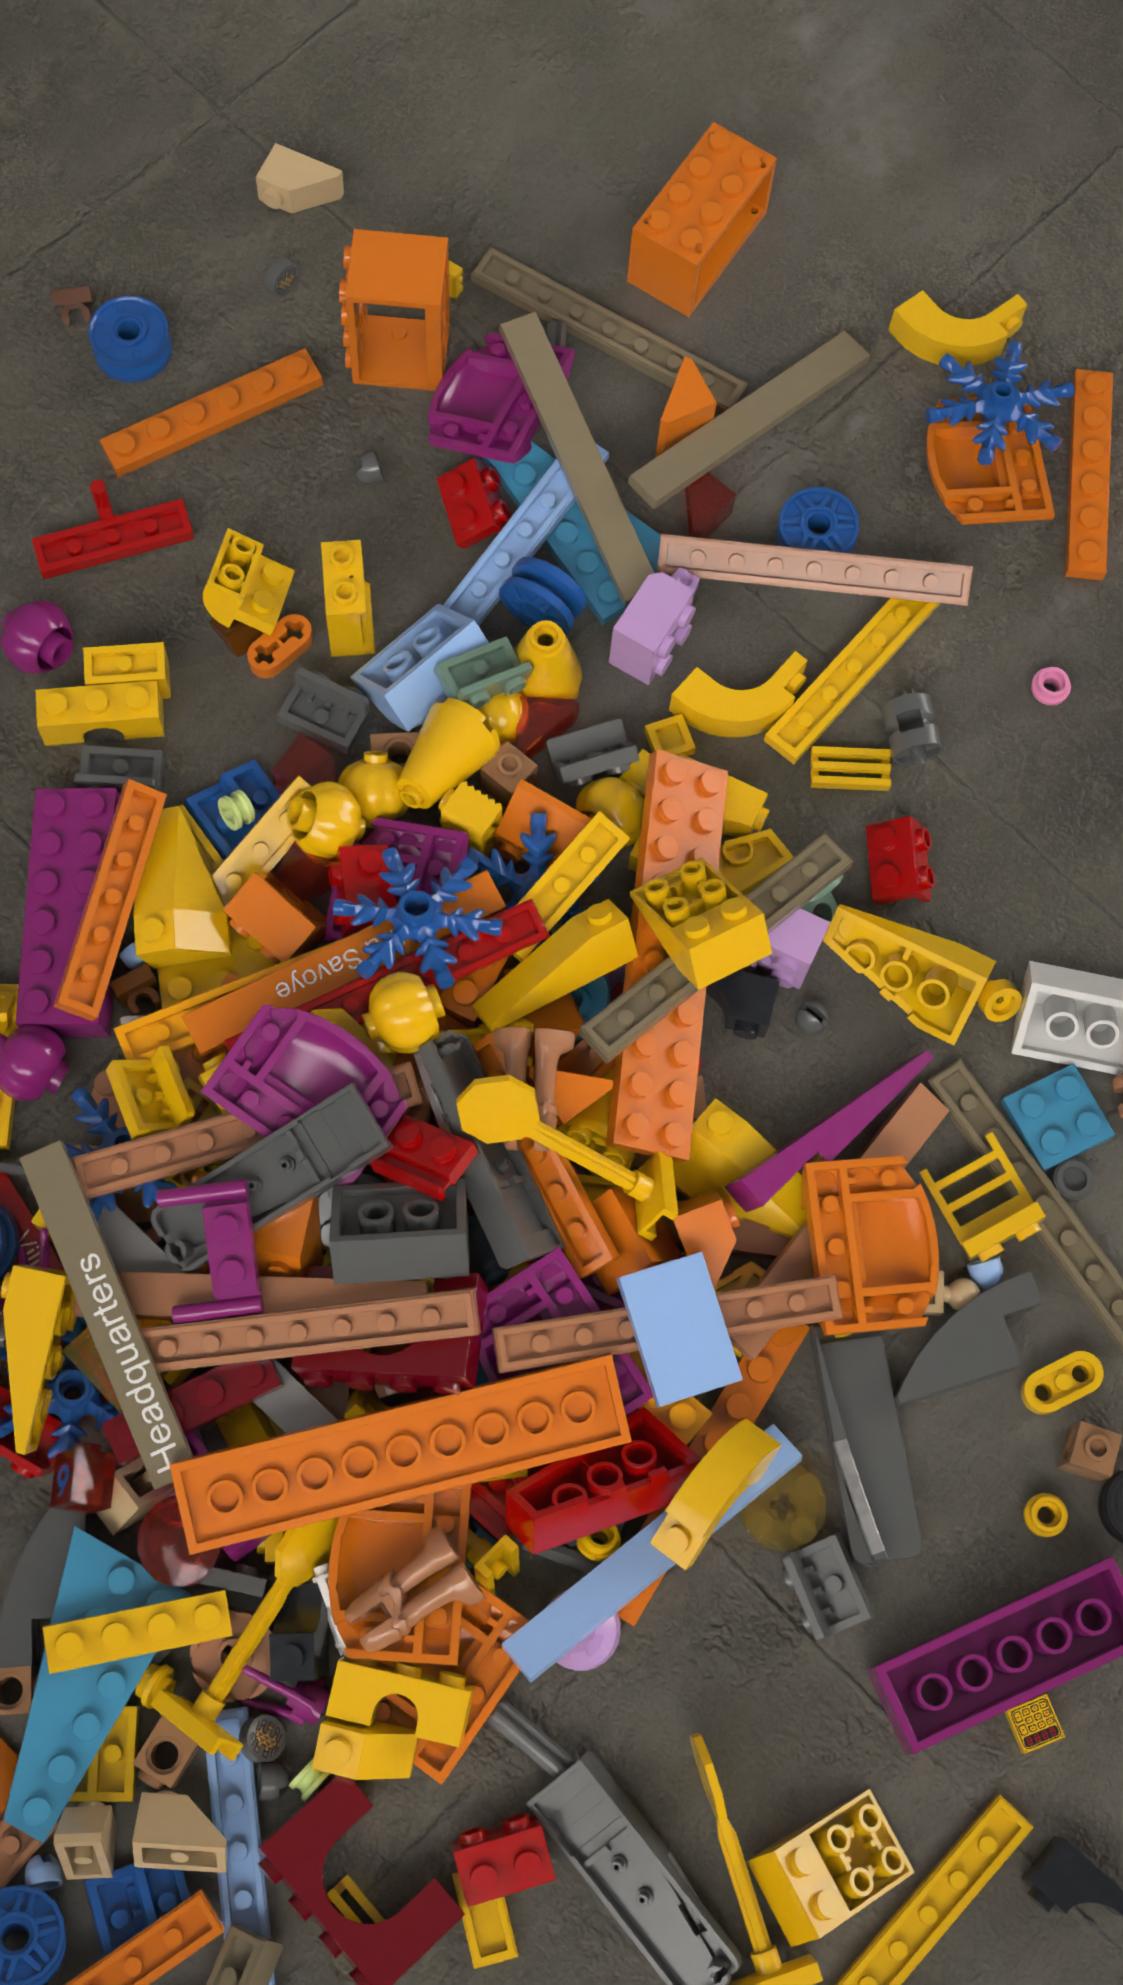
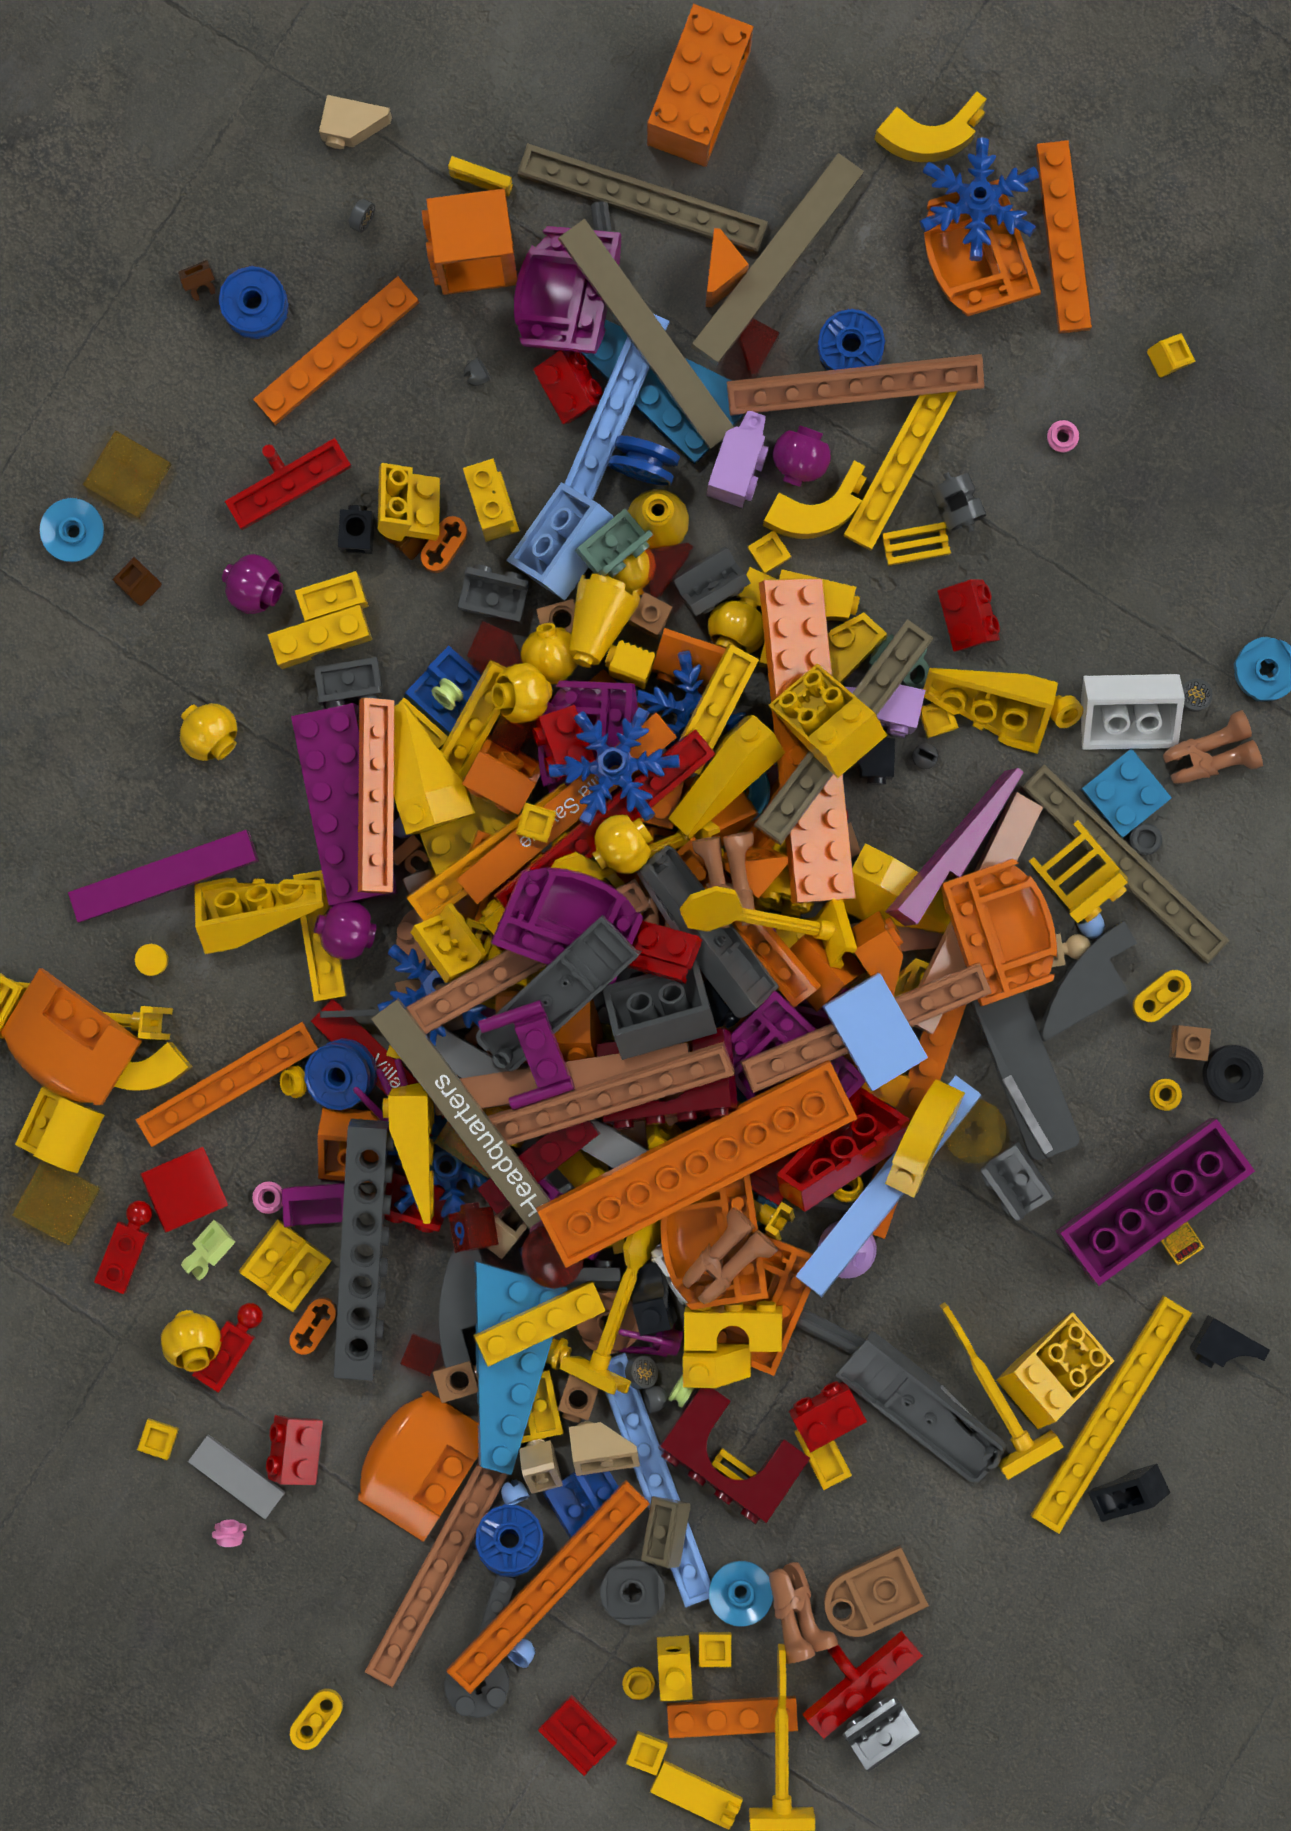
camera: 10 degrees left, 15 degrees up
(178, 620) = (356, 544): none -> black brick
(301, 967) = (536, 822): none -> yellow tile
(733, 637) = (801, 455): none -> magenta plant
(835, 978) = (937, 720): none -> yellow tile

